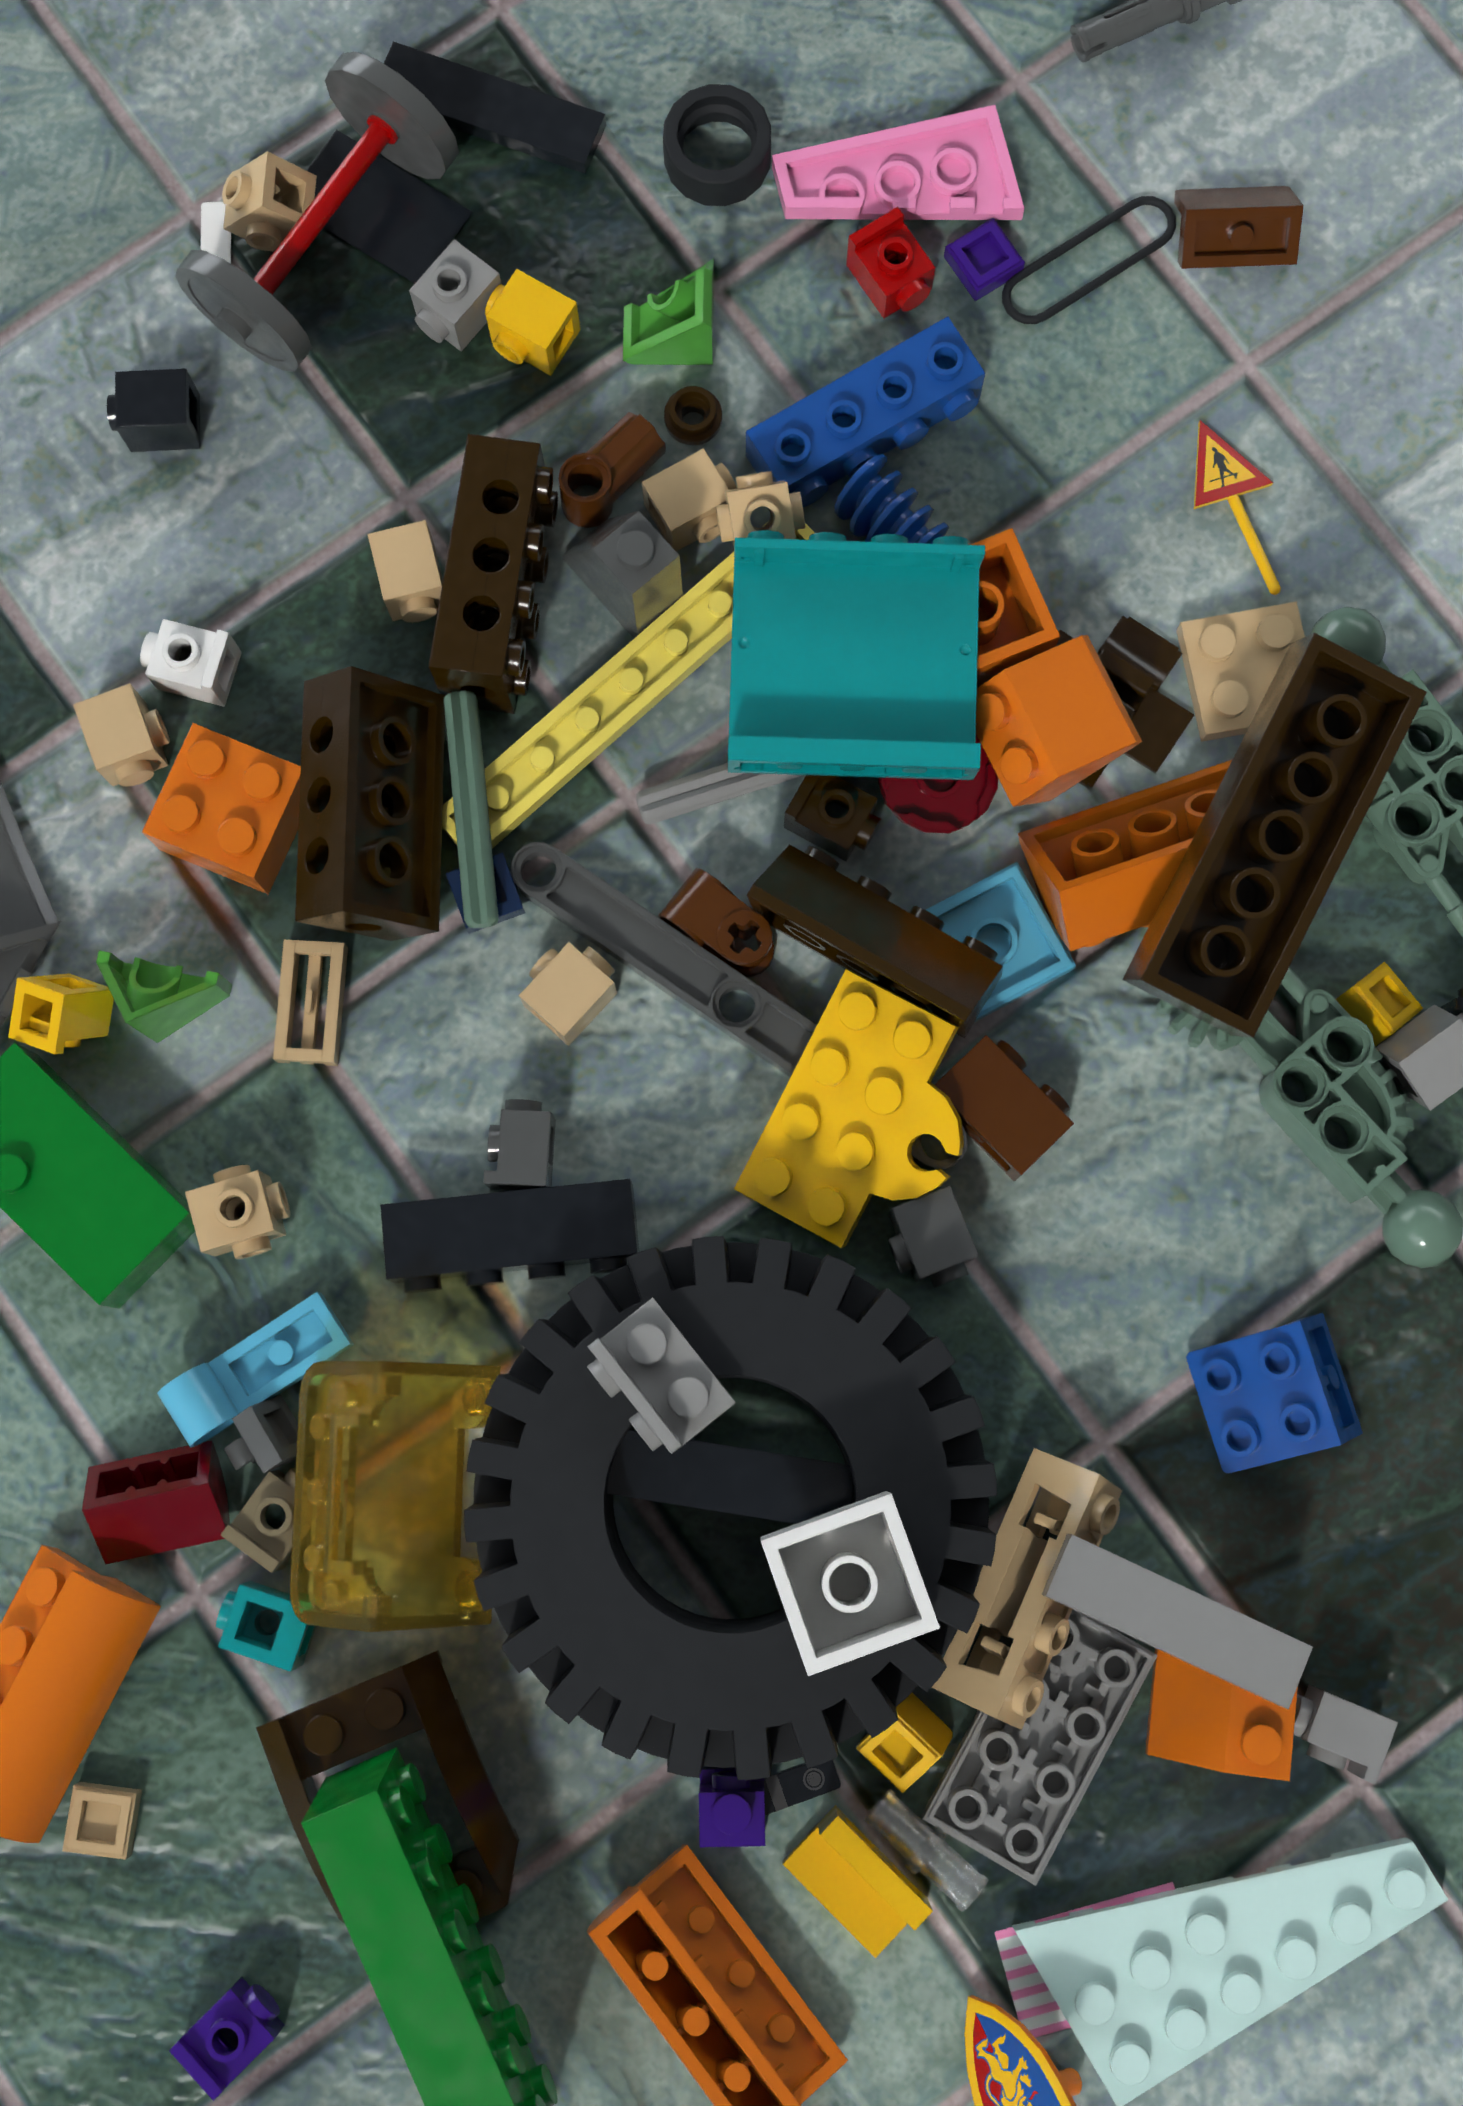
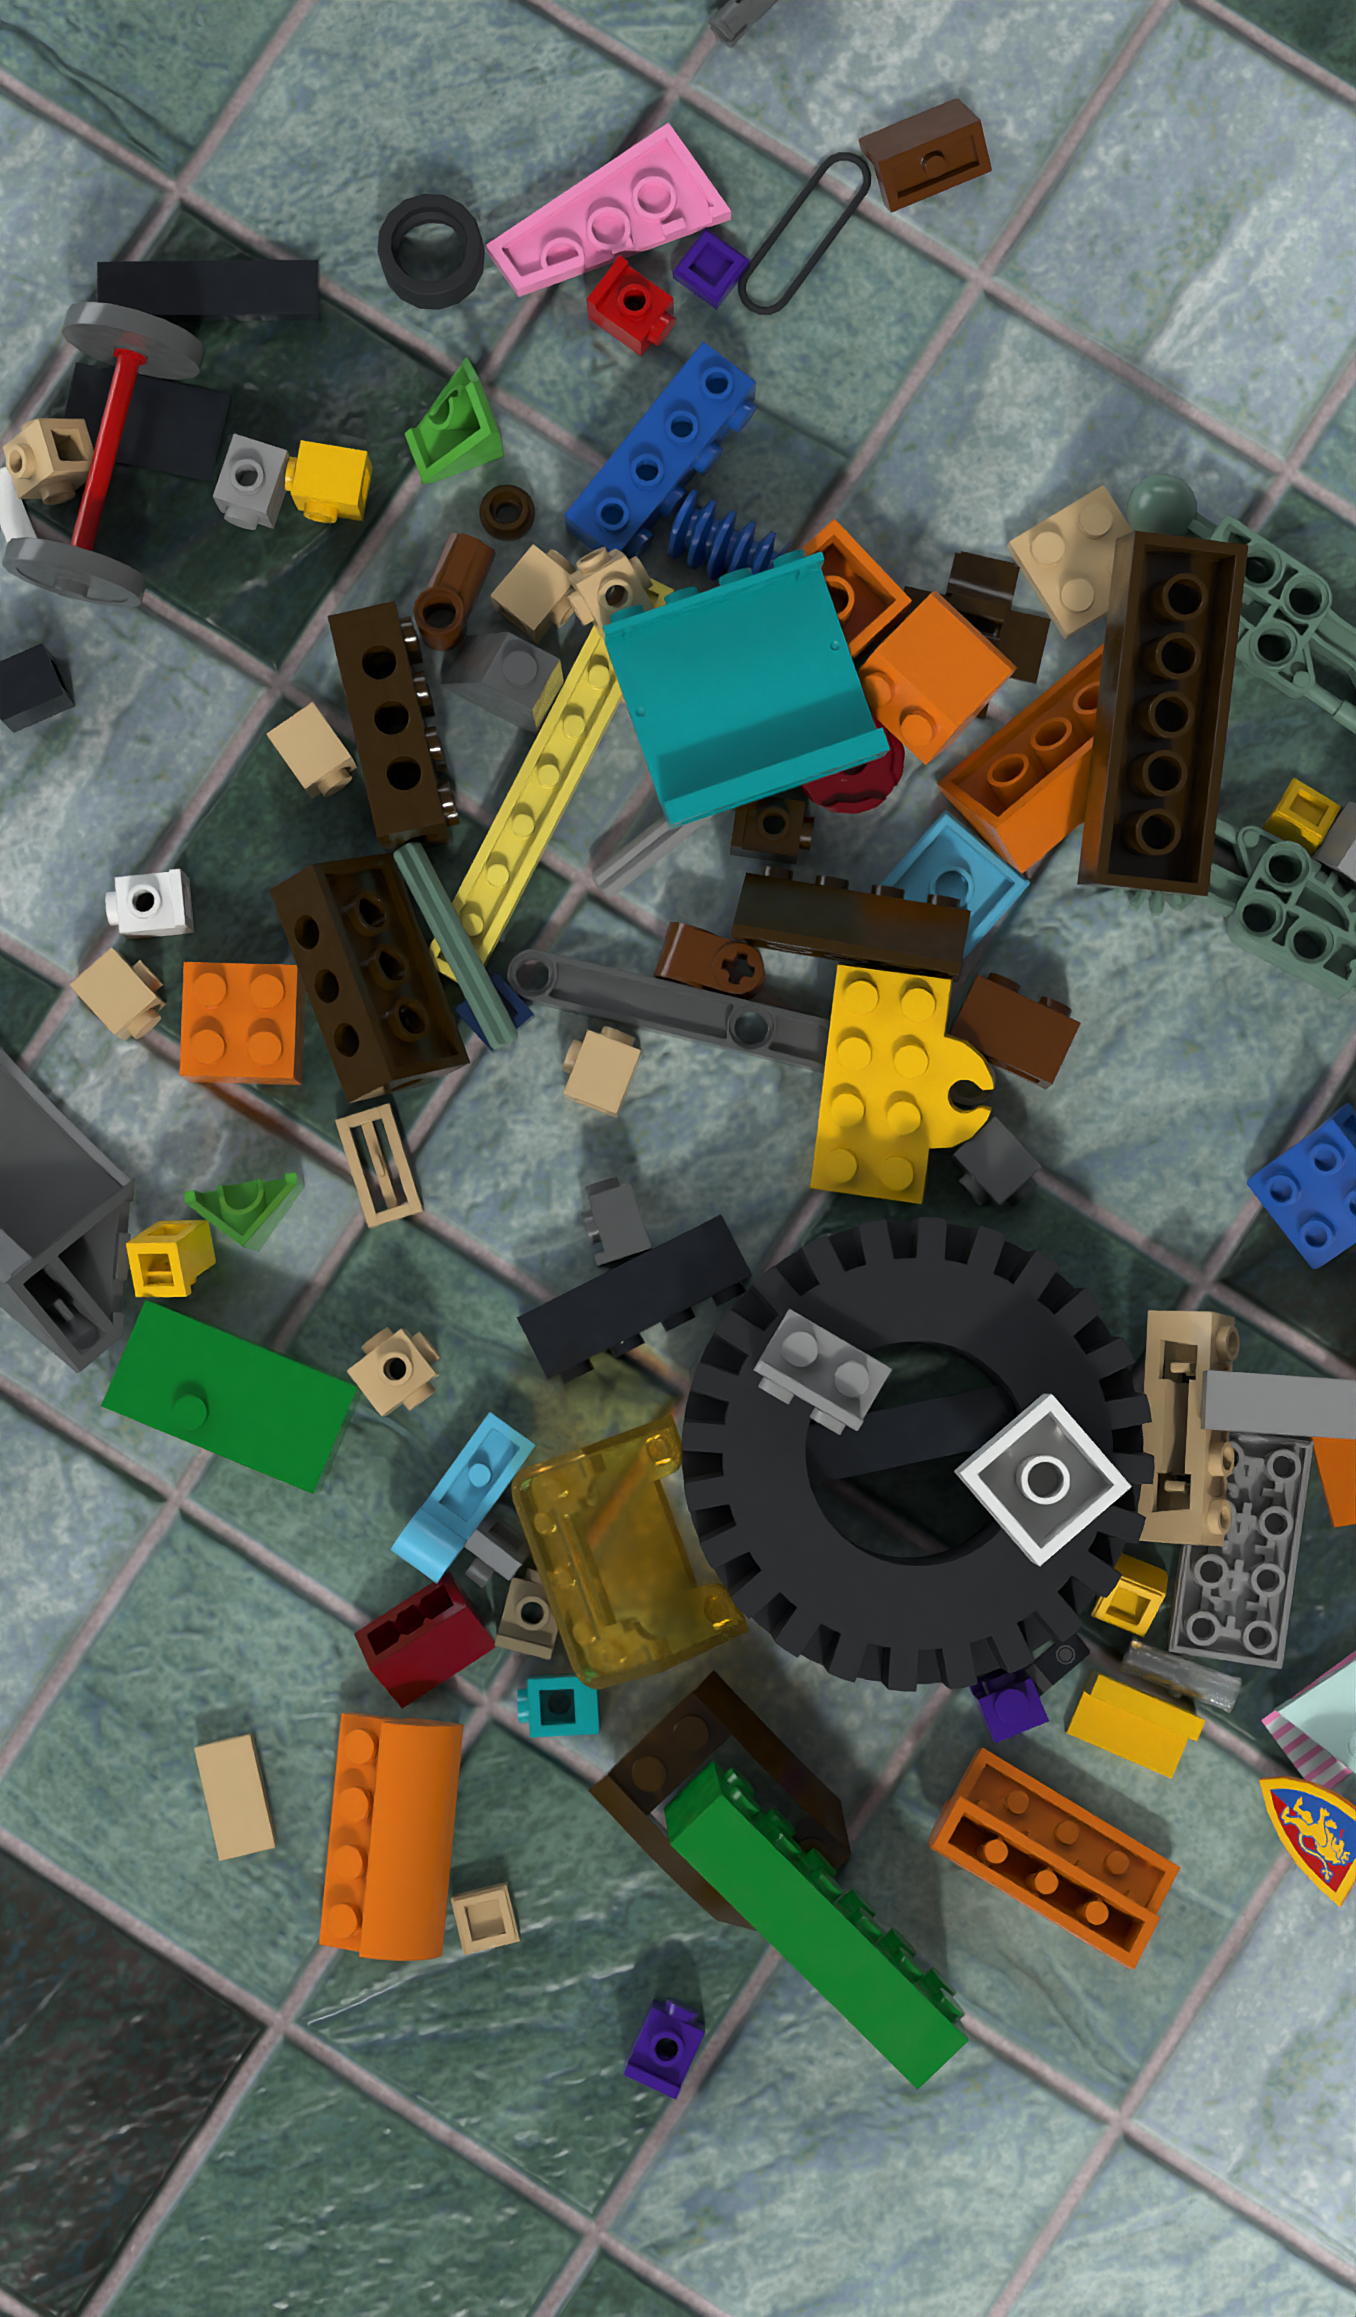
camera: 20 degrees left, 5 degrees up
(1227, 475) = (998, 391): piece -> none

